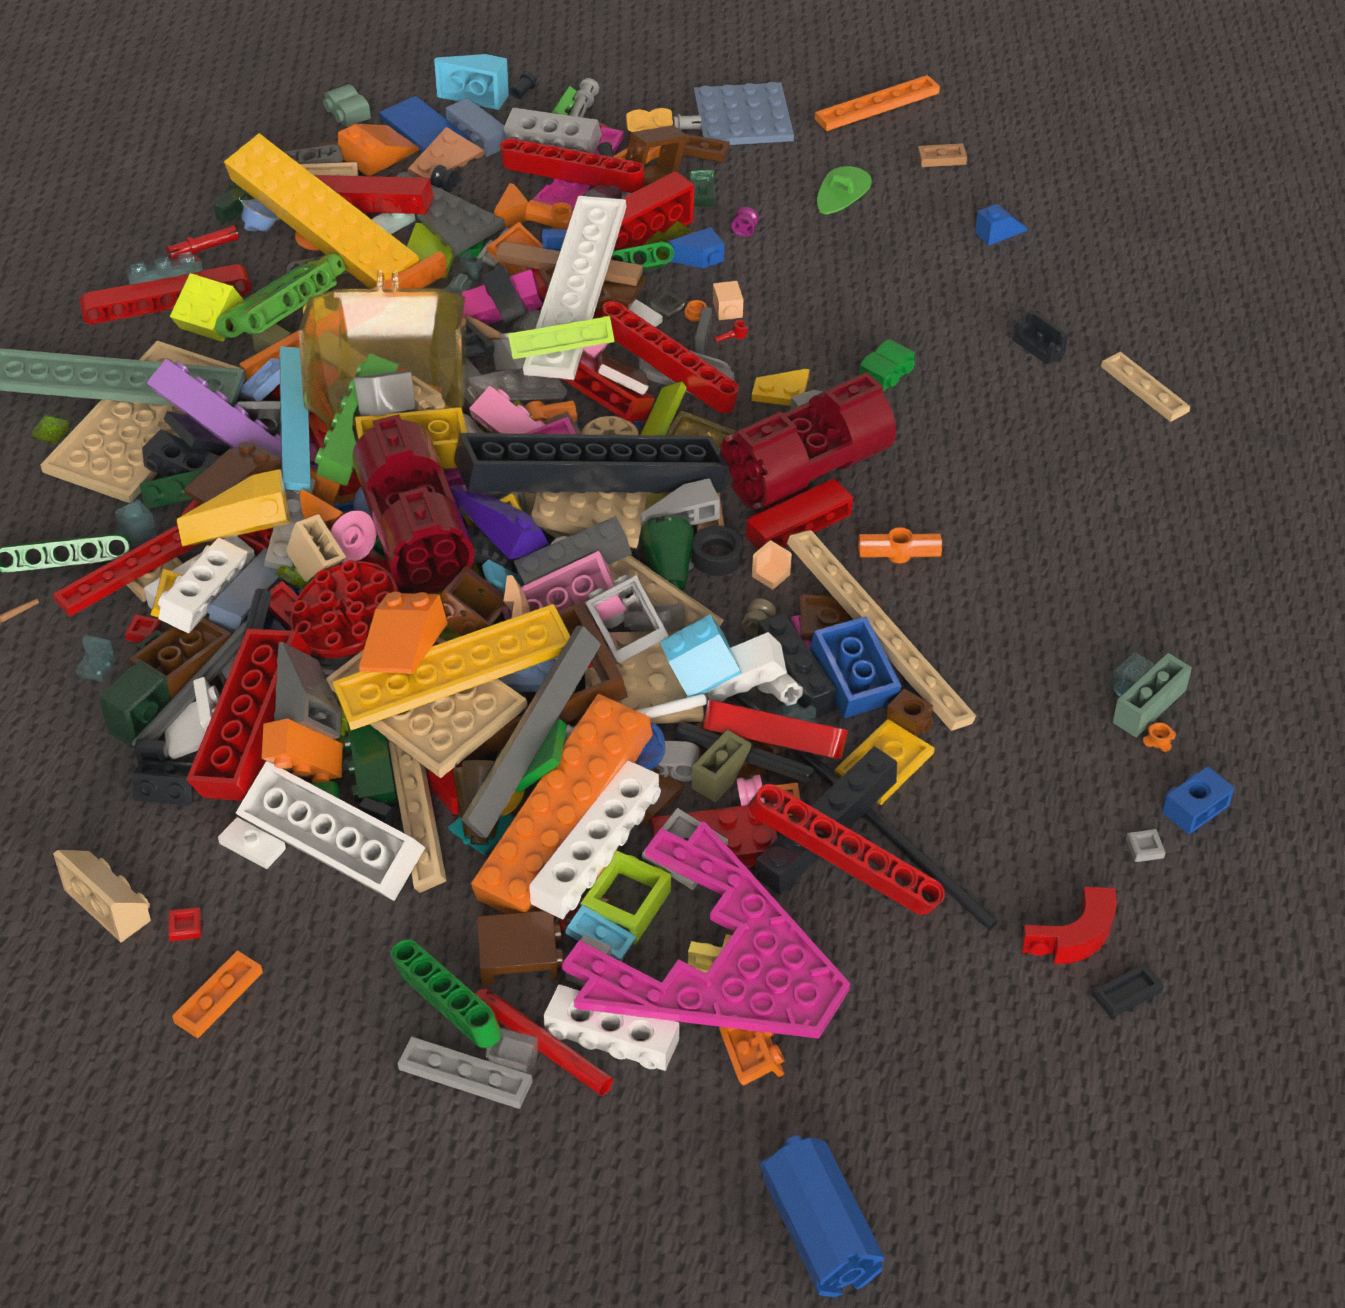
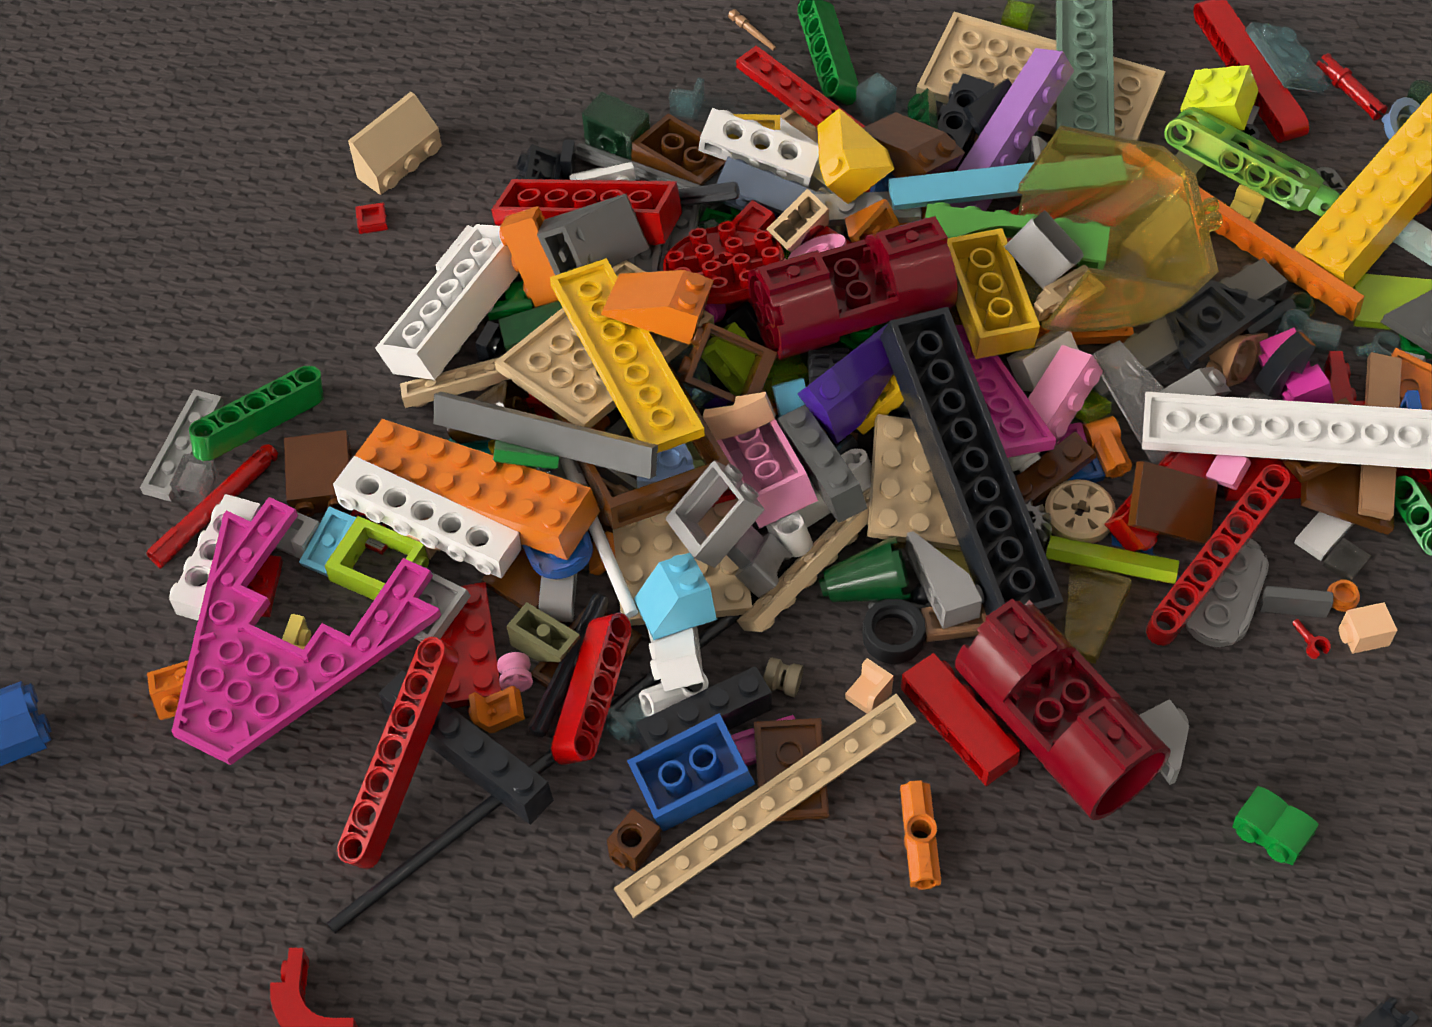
camera: 90 degrees right, 10 degrees up
(217, 994) = (287, 250): orange plate -> none
(561, 337) = (1187, 417): lime plate -> none
(780, 387) = (1211, 701): yellow wing -> none
(897, 743) = (576, 820): yellow tile -> none

